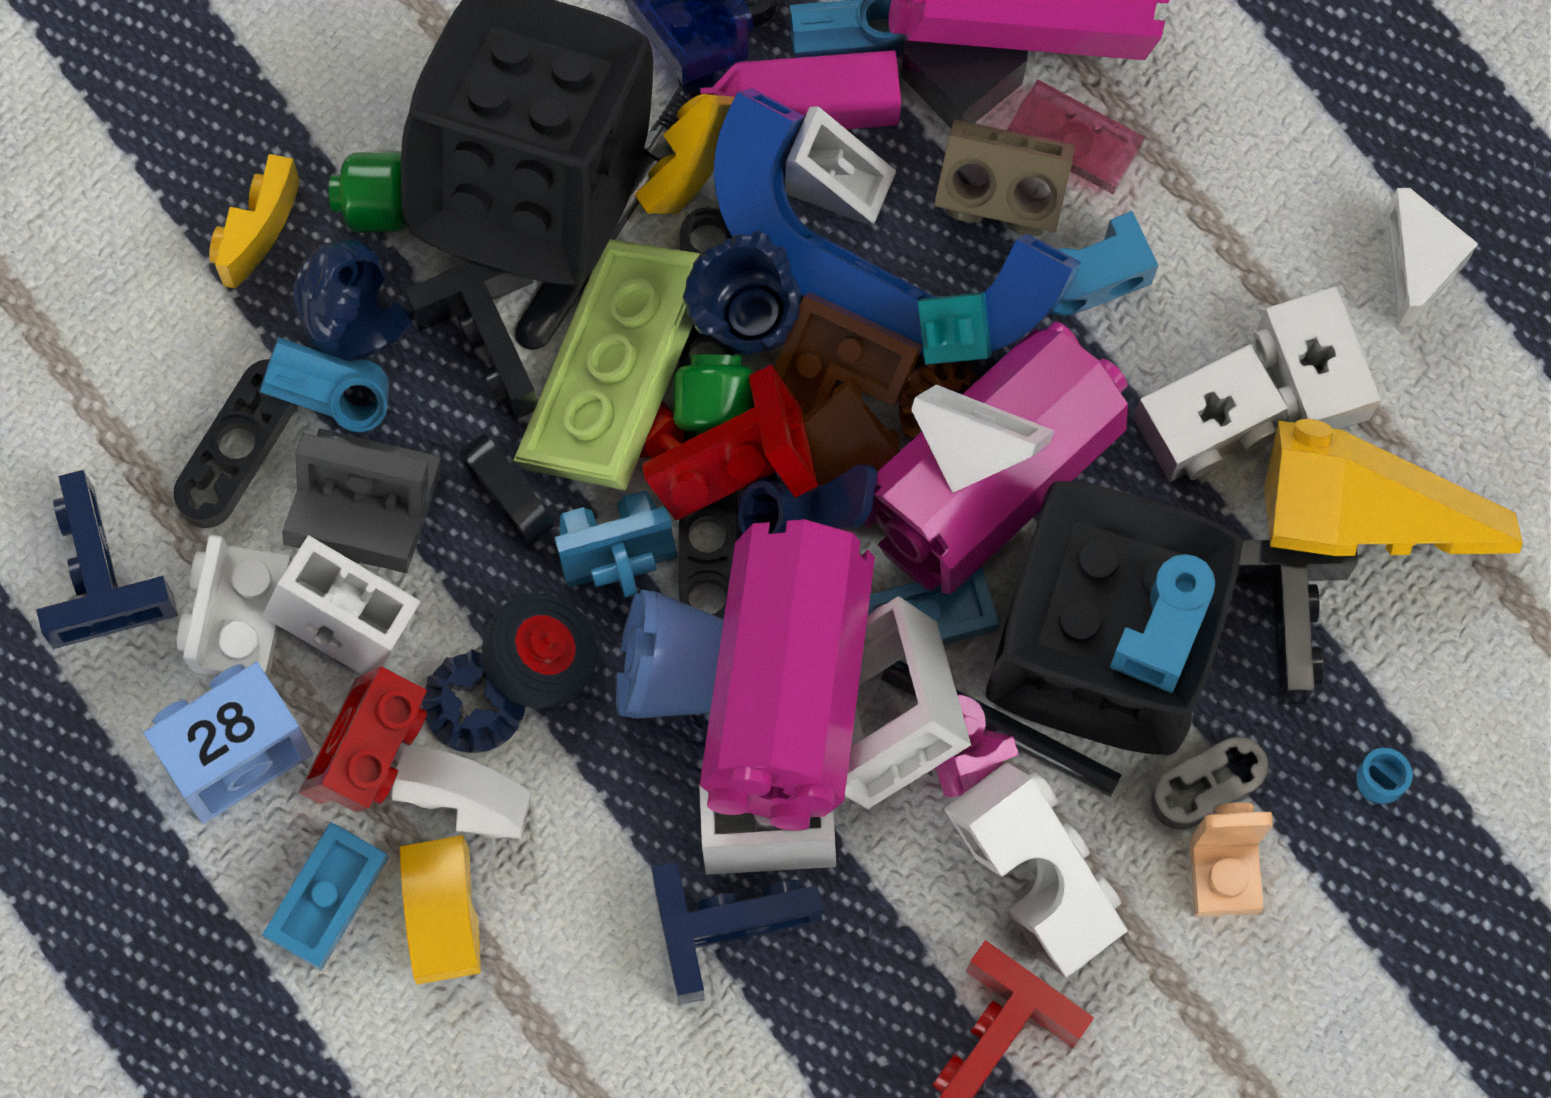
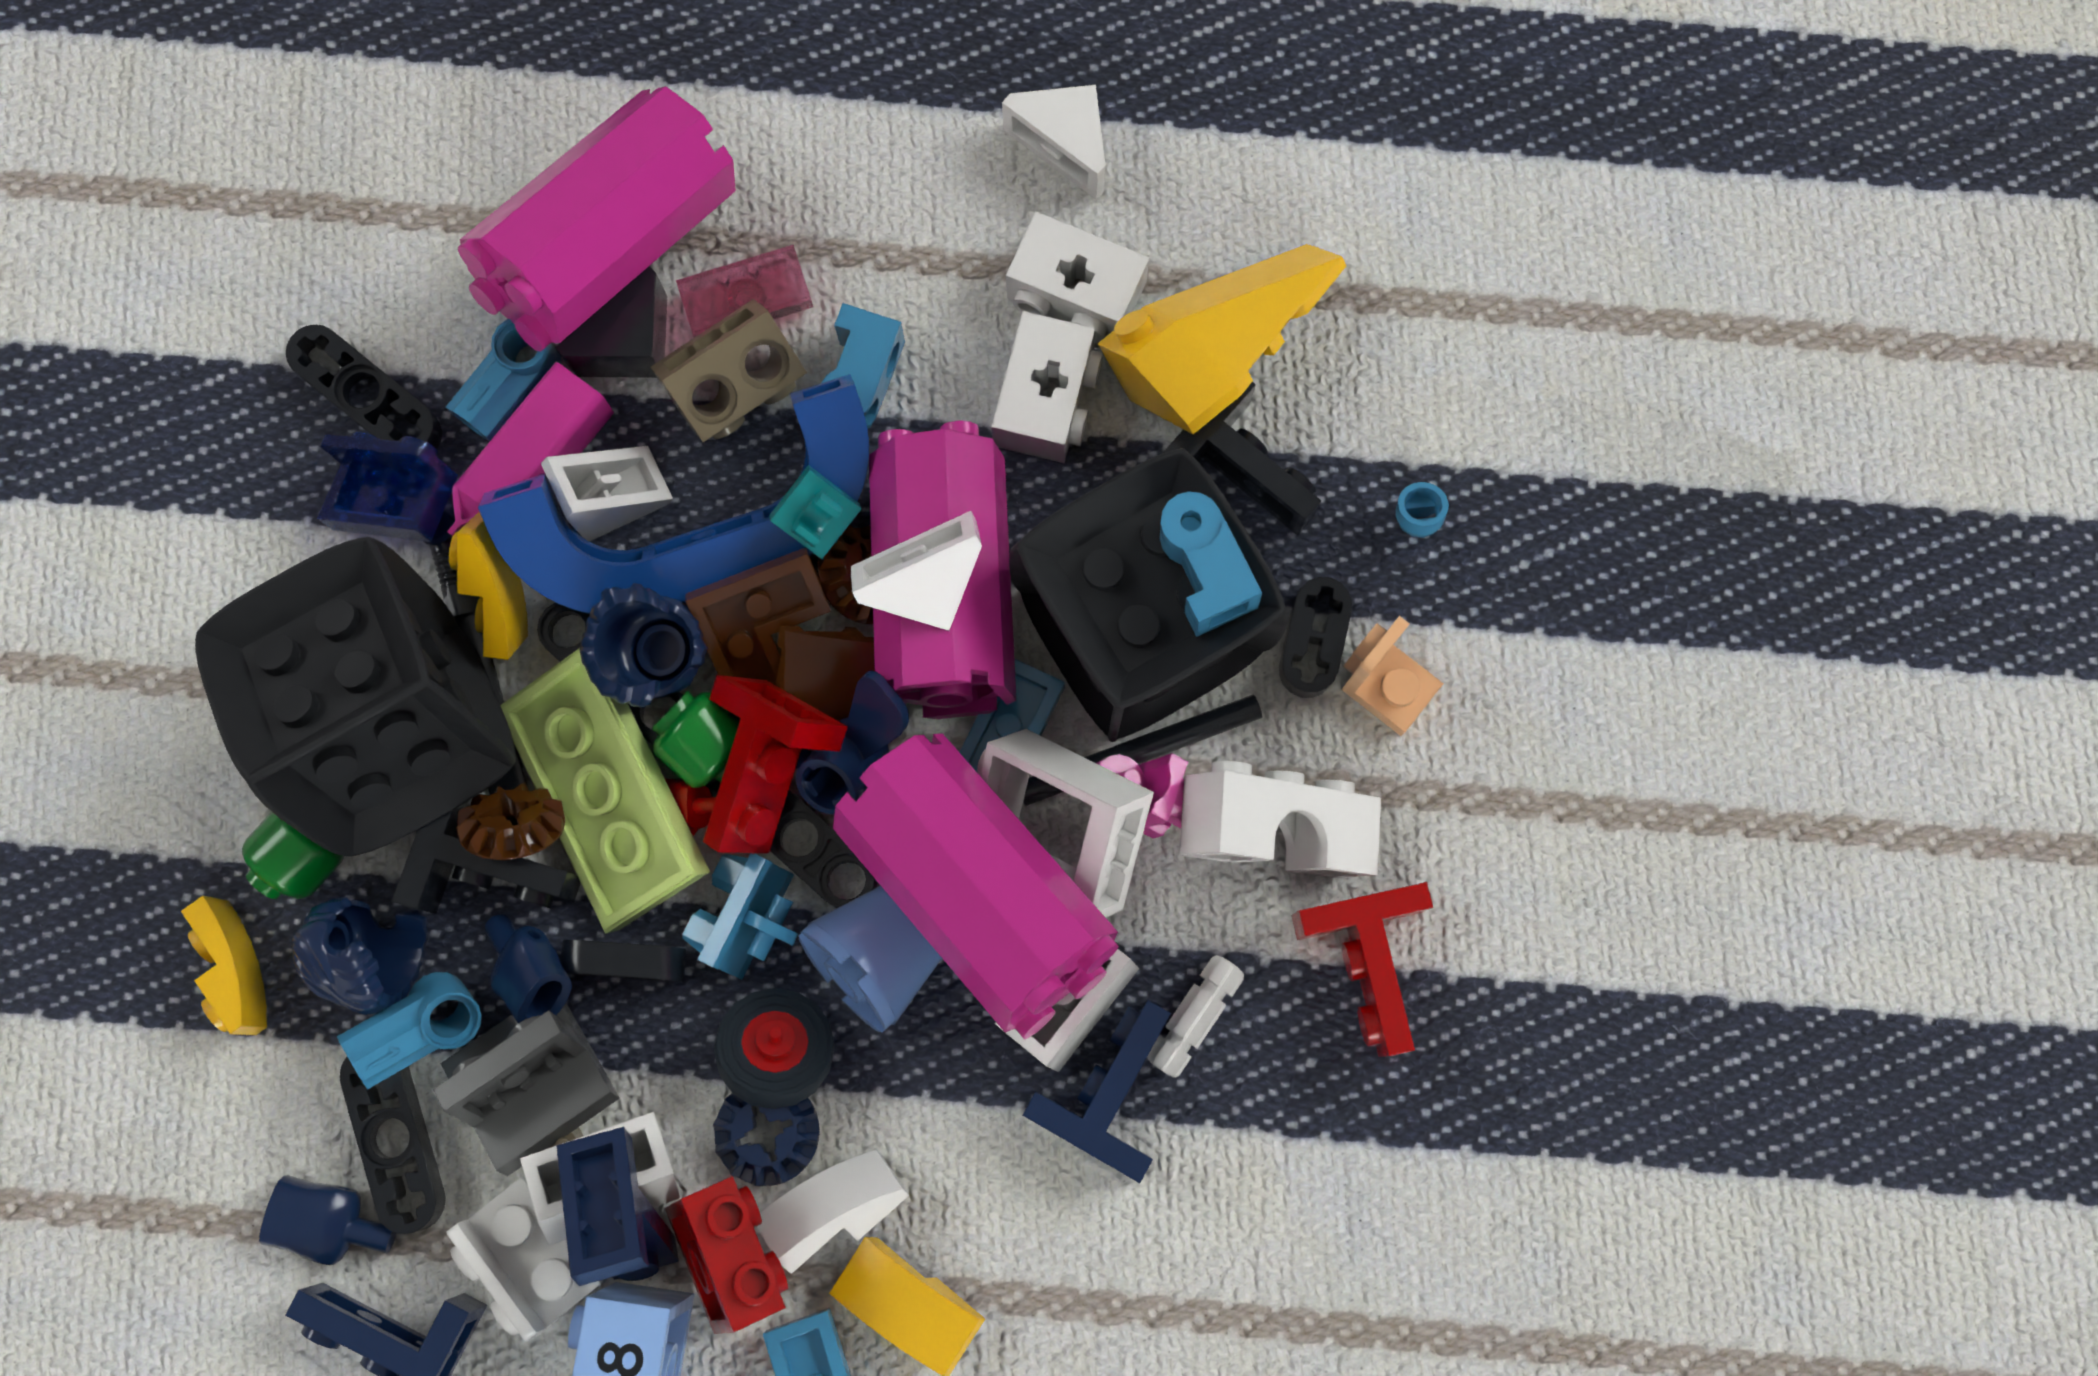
camera: 45 degrees left, 5 degrees up
(136, 446) = (319, 1221): none -> dark blue piece
(322, 633) = (605, 1213): none -> dark blue bracket
(440, 426) = (527, 970): none -> dark blue piece
(513, 310) = (489, 835): none -> reddish brown gear
(838, 940) = (1195, 1016): none -> white axle

